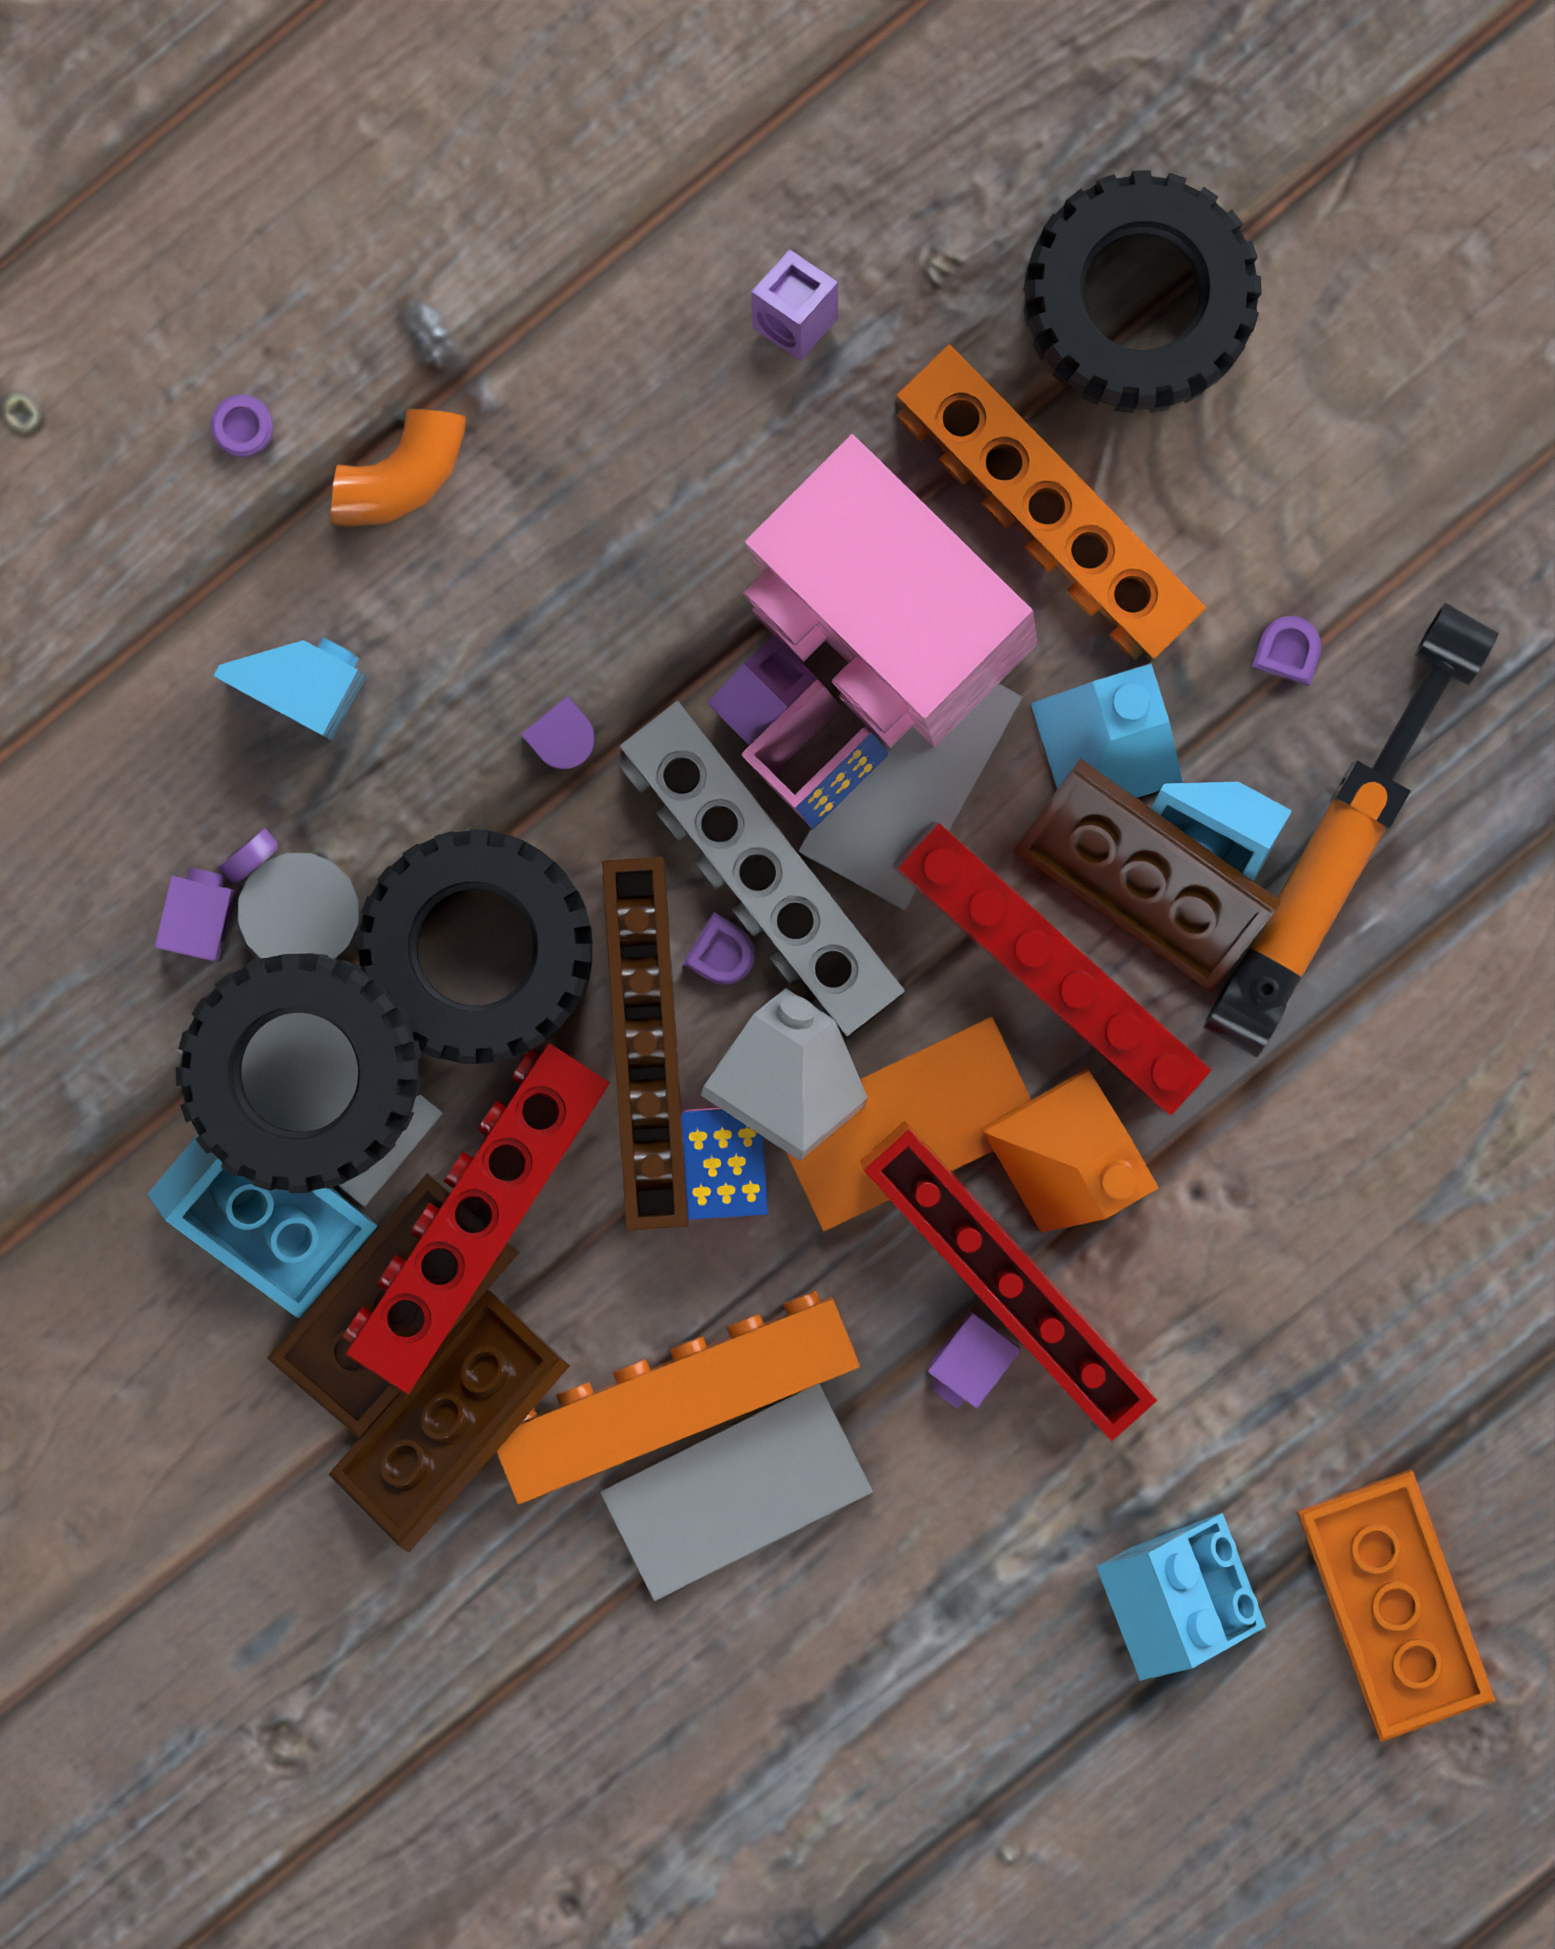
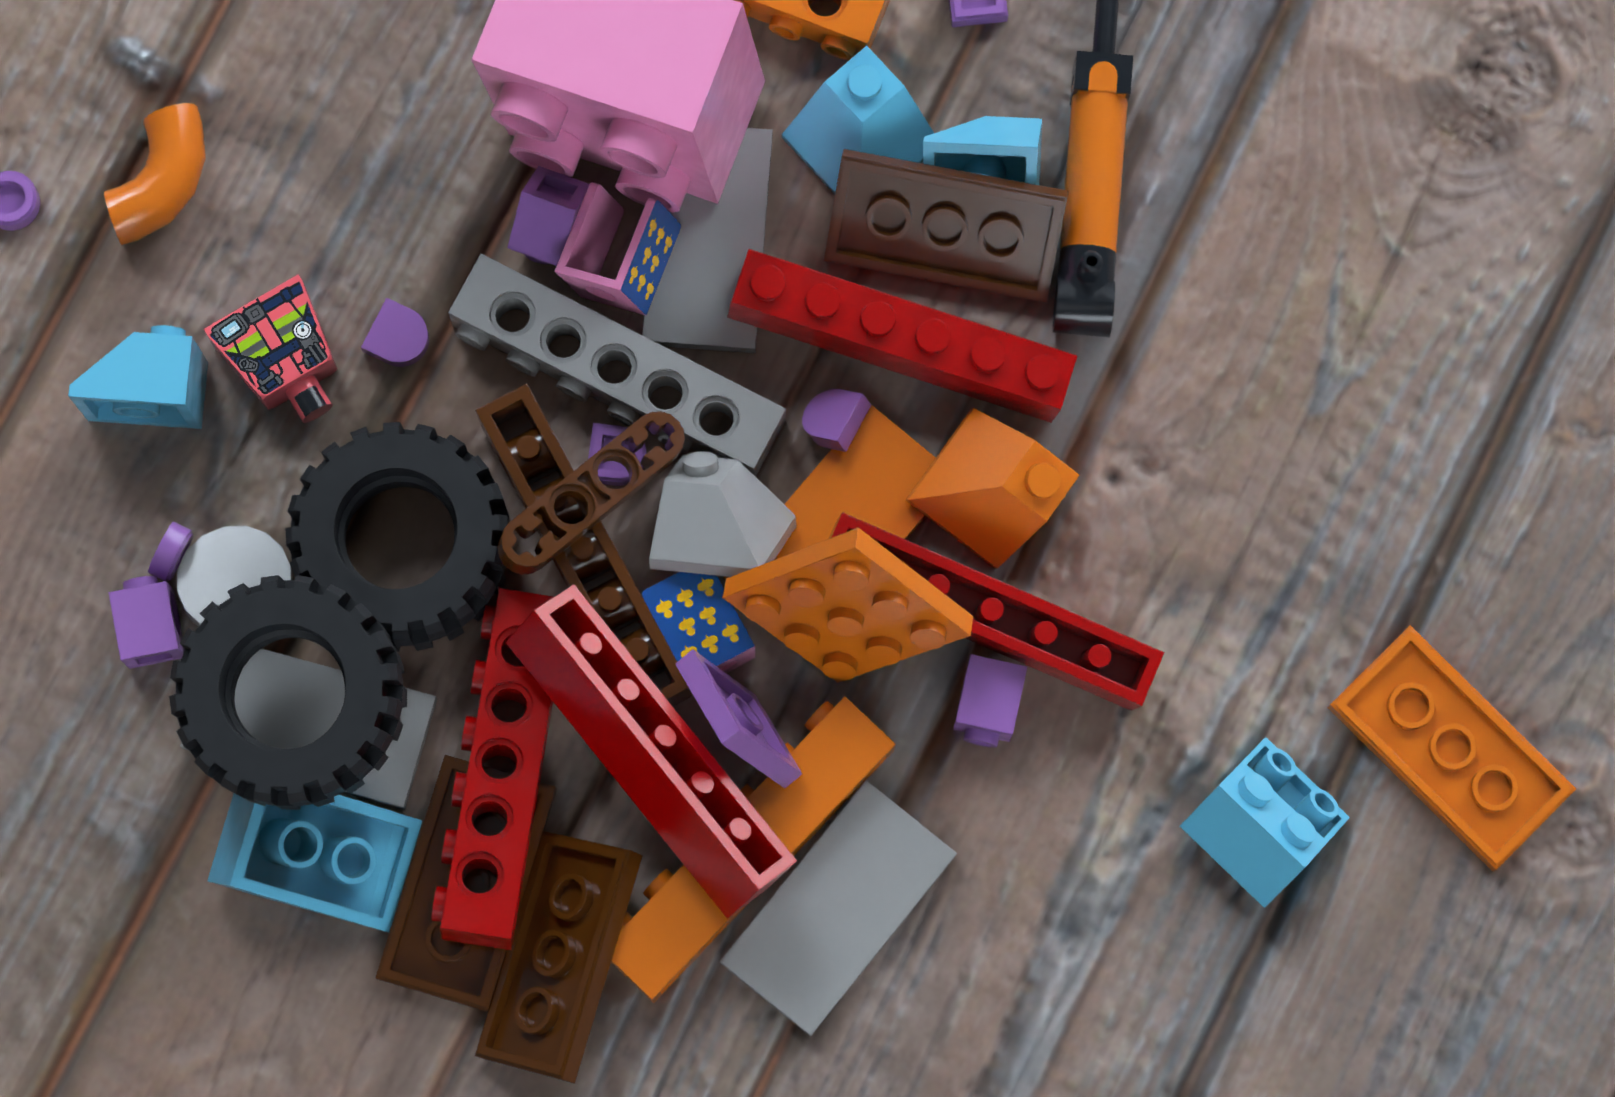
camera: 30 degrees left, 10 degrees down
(440, 702) = (278, 349): none -> torso
(620, 1277) = (650, 751): none -> red brick
(677, 996) = (595, 496): none -> reddish brown beam
(719, 1281) = (738, 719): none -> medium lavender tile
(871, 1225) = (848, 606): none -> orange plate
(950, 1016) = (835, 418): none -> medium lavender tile

